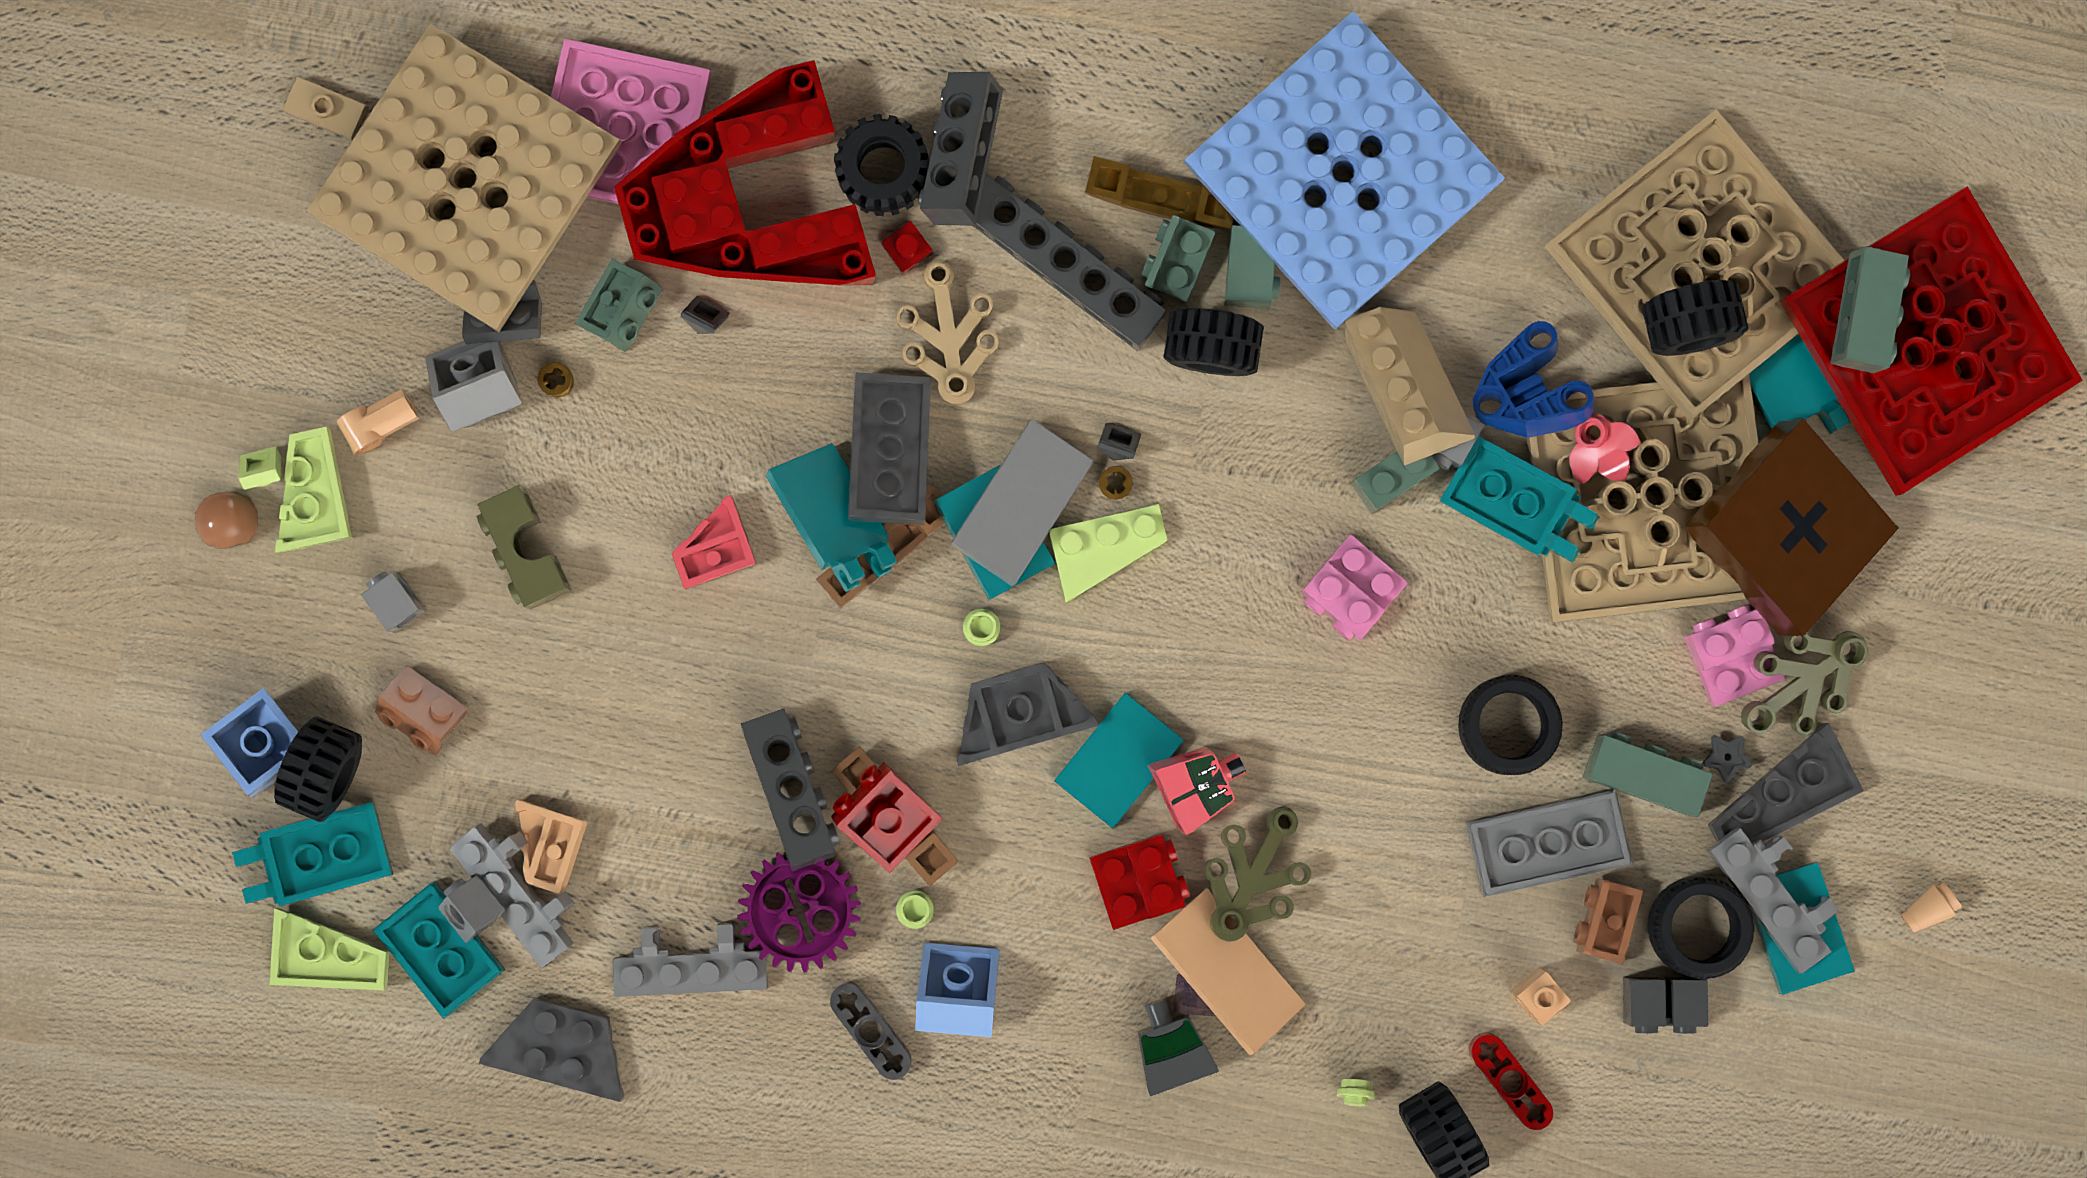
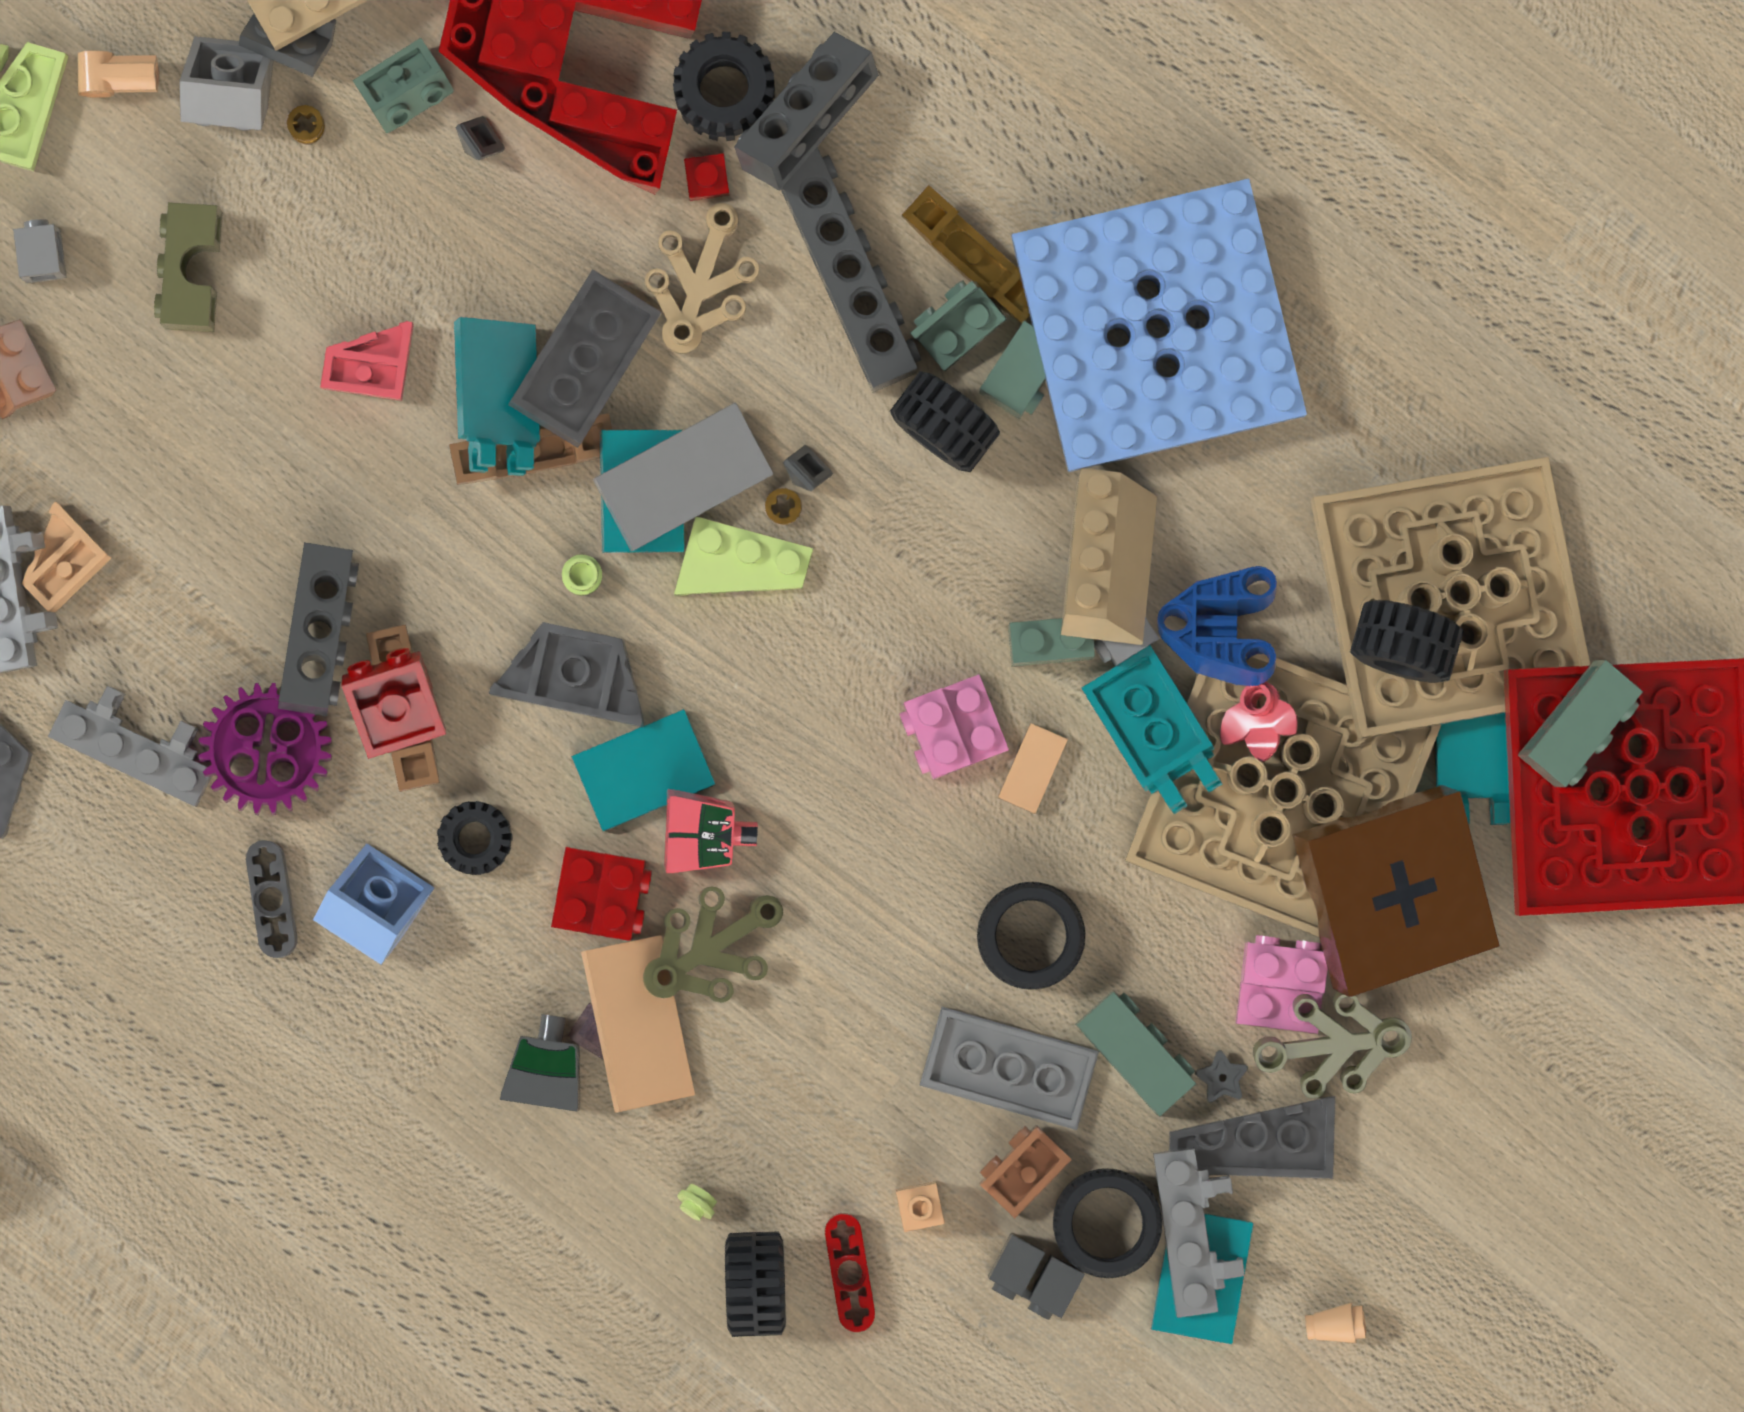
camera: 20 degrees right, 0 degrees up
(915, 909) = (375, 807): yellowish green plate -> none
(1006, 914) = (451, 827): none -> black tyre
(1435, 587) = (1032, 768): none -> light nougat tile

